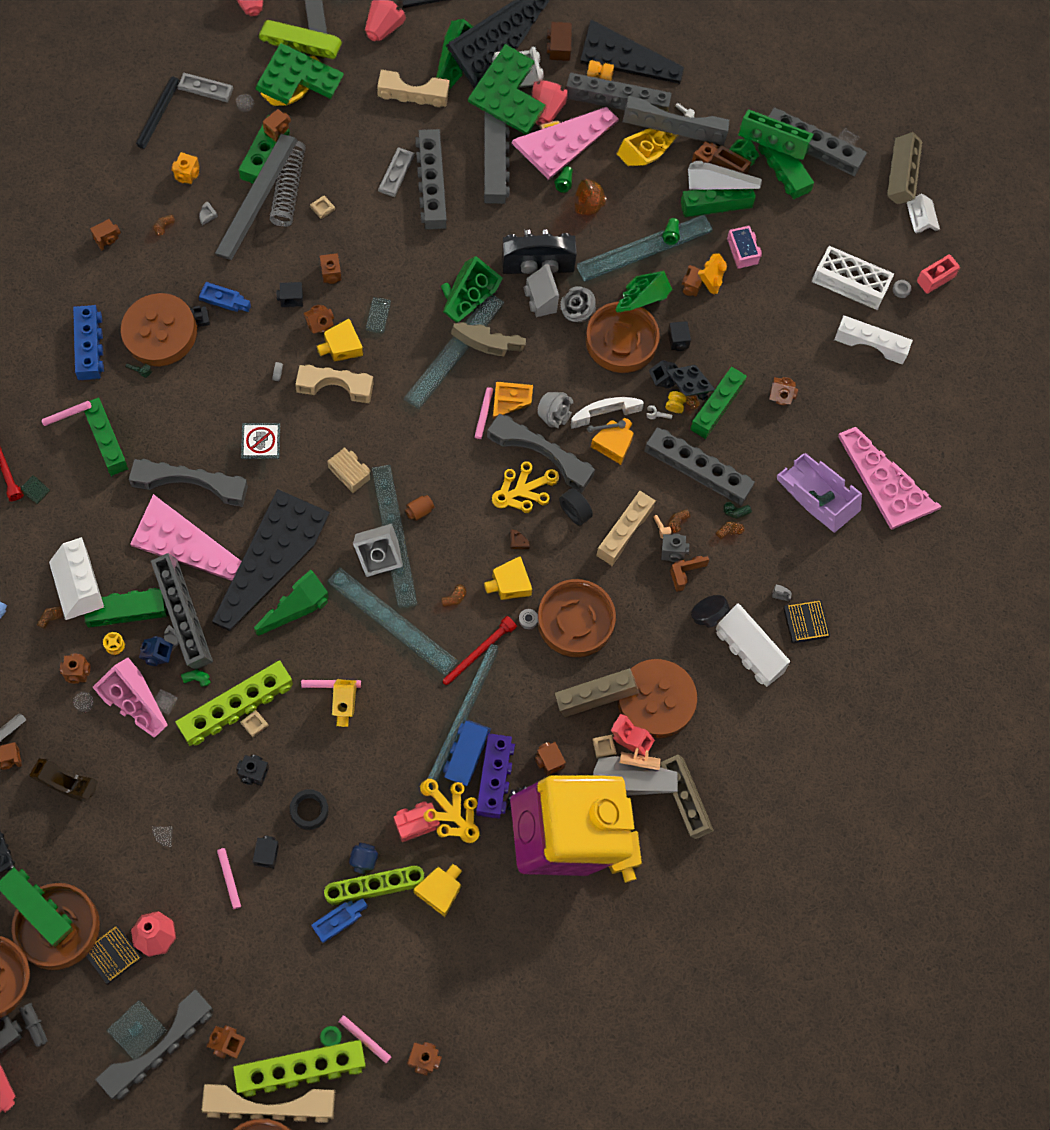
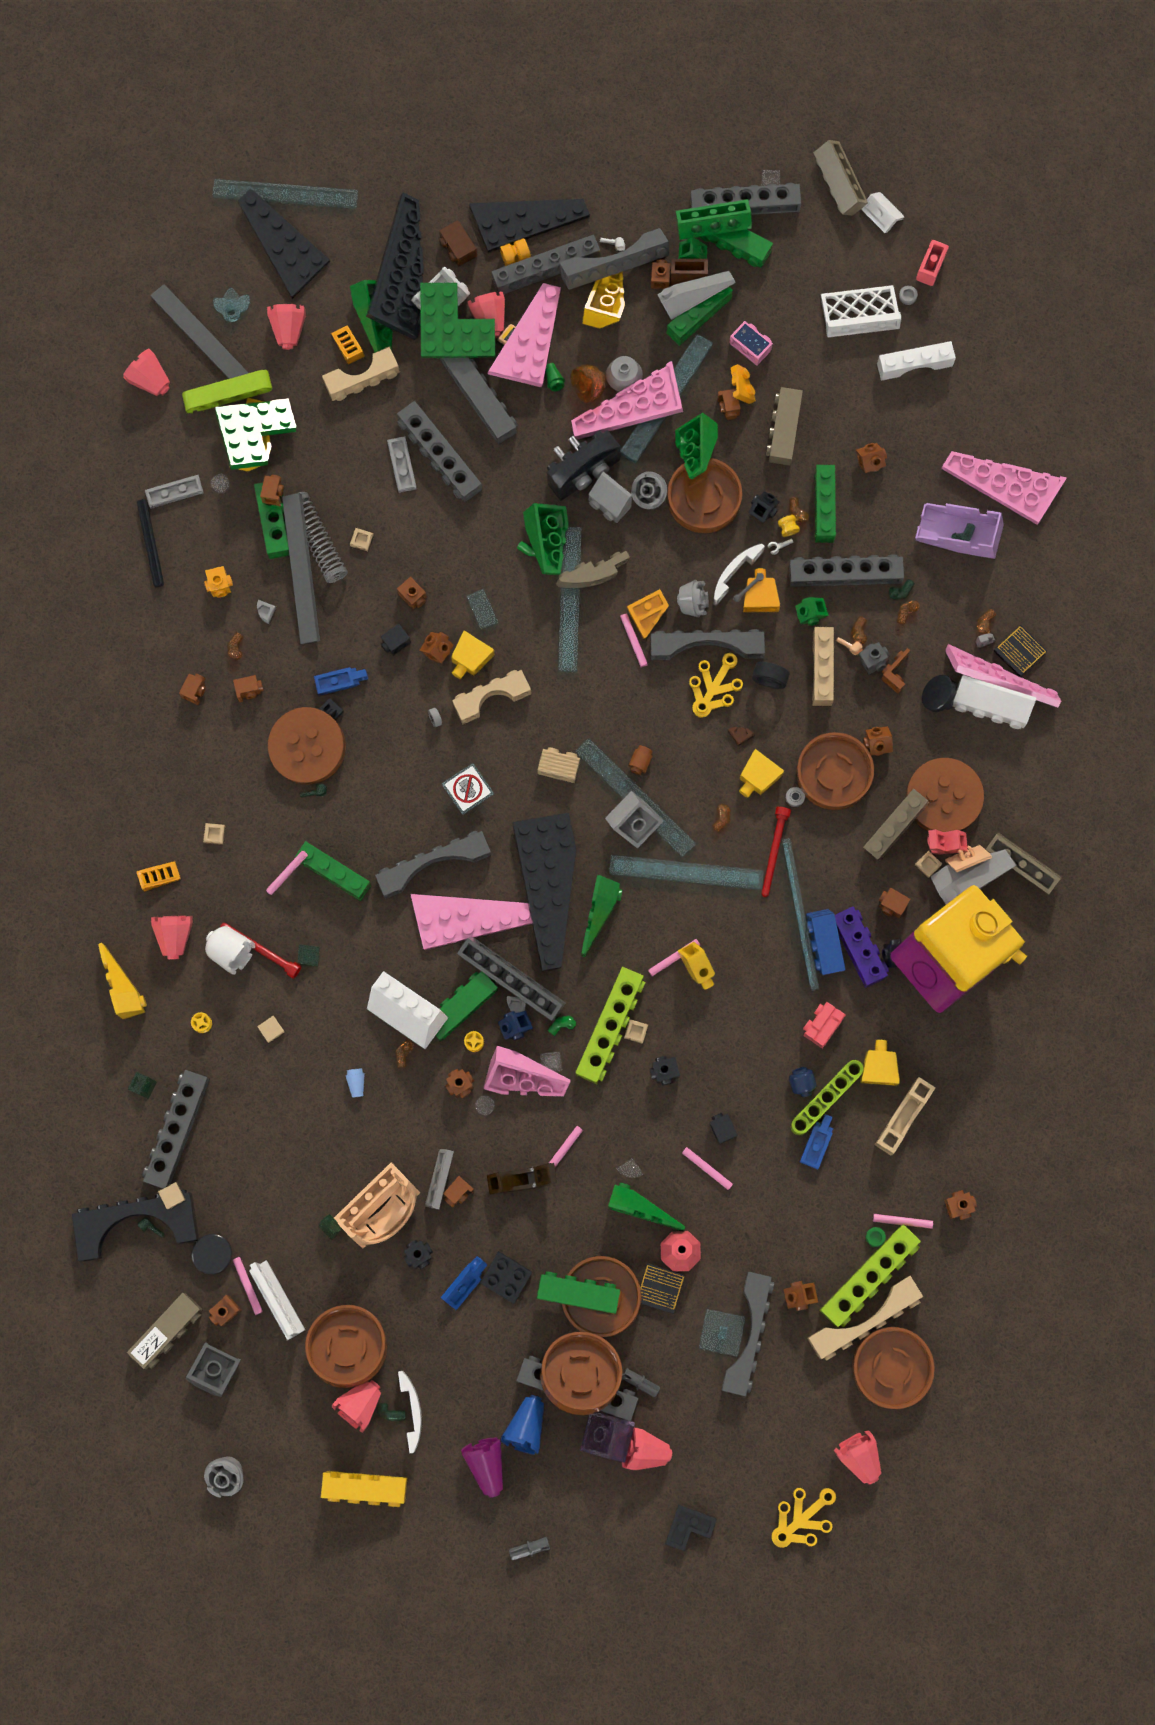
camera: 25 degrees left, 10 degrees up
(36, 351) = (214, 833): none -> tan tile
(87, 342) = (253, 797): blue brick -> none
(121, 781) = (566, 1146): none -> bright pink bar
(141, 862) = (633, 1204): none -> green wedge
(147, 259) = (248, 687): none -> dark orange brick
(309, 793) = (734, 1057): black tyre -> none
(417, 73) = (353, 356): none -> light orange slope
(422, 950) = (904, 1116): none -> tan arch
(453, 811) = (848, 998): yellow plant -> none
(614, 235) = (638, 403): none -> bright pink wing
(623, 209) = (623, 373): none -> light grey cone
(630, 616) = (878, 741): none -> dark orange brick
(647, 478) = (811, 611): none -> green brick
(671, 233) = (683, 371): green cone -> none
(679, 335) = (751, 463): black brick -> none
(691, 381) = (792, 500): black hinge -> none
(727, 325) = (785, 426): none -> dark tan brick
(770, 624) = (995, 674): none -> bright pink wing
(791, 577) = (983, 622): none -> clear orange arm

